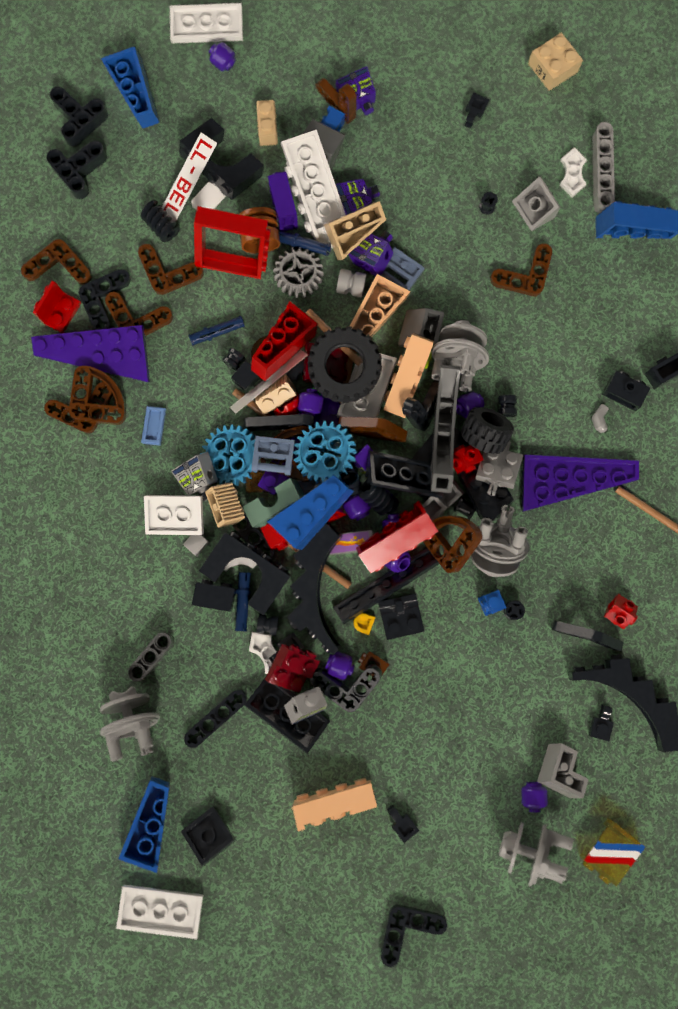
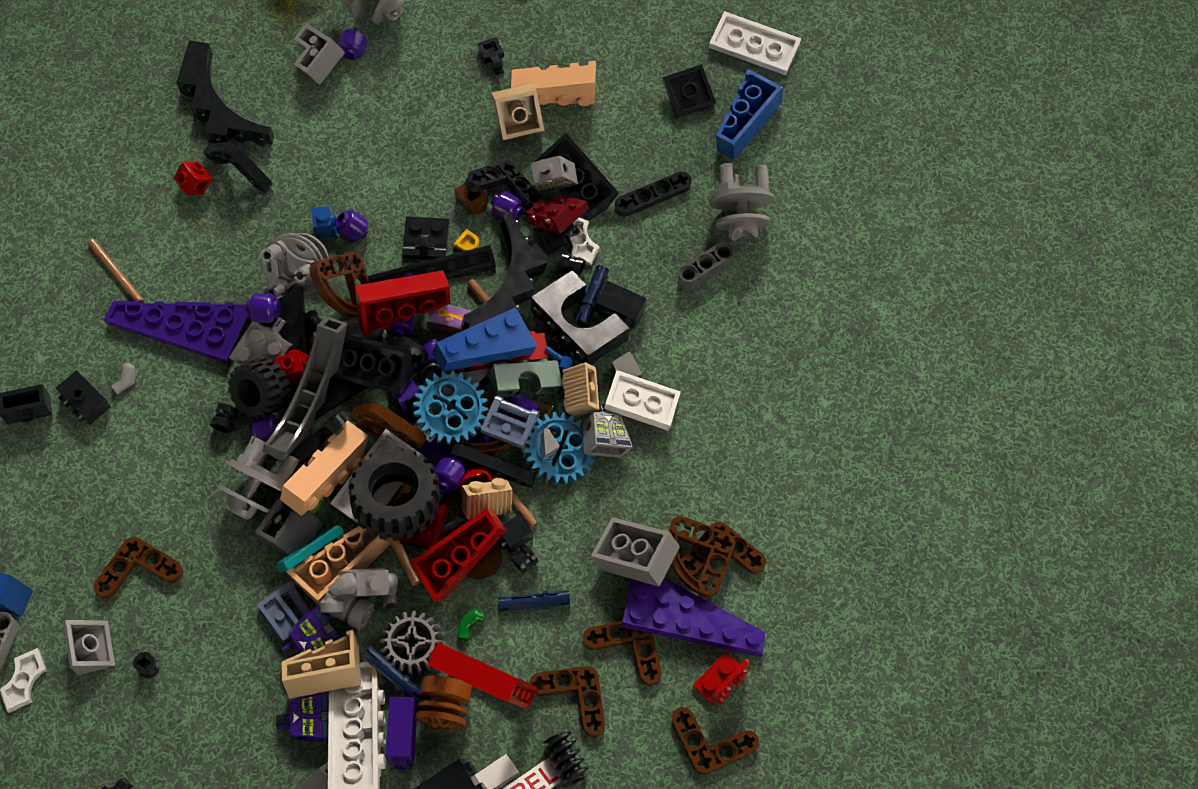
camera: 165 degrees left, 15 degrees down
(97, 293) = (667, 689): black beam -> none
(144, 380) = (635, 551): none -> light grey brick
(153, 425) = (642, 506): medium blue tile -> none
(235, 442) = (548, 444): none -> light grey slope
(245, 527) = (565, 361): none -> blue hand
(263, 302) = (470, 618): none -> green arm
(265, 384) = (505, 510): sticker -> none
(347, 290) = (360, 583): none -> light grey torso
(357, 761) = (517, 111): none -> tan brick
(399, 317) = (309, 548): none -> teal tile
(467, 605) = (351, 225): none -> dark purple head
(509, 494) = (263, 307): none -> dark purple head
(516, 608) = (301, 206): black wheel -> none
(602, 727) = (258, 86): black plate -> none

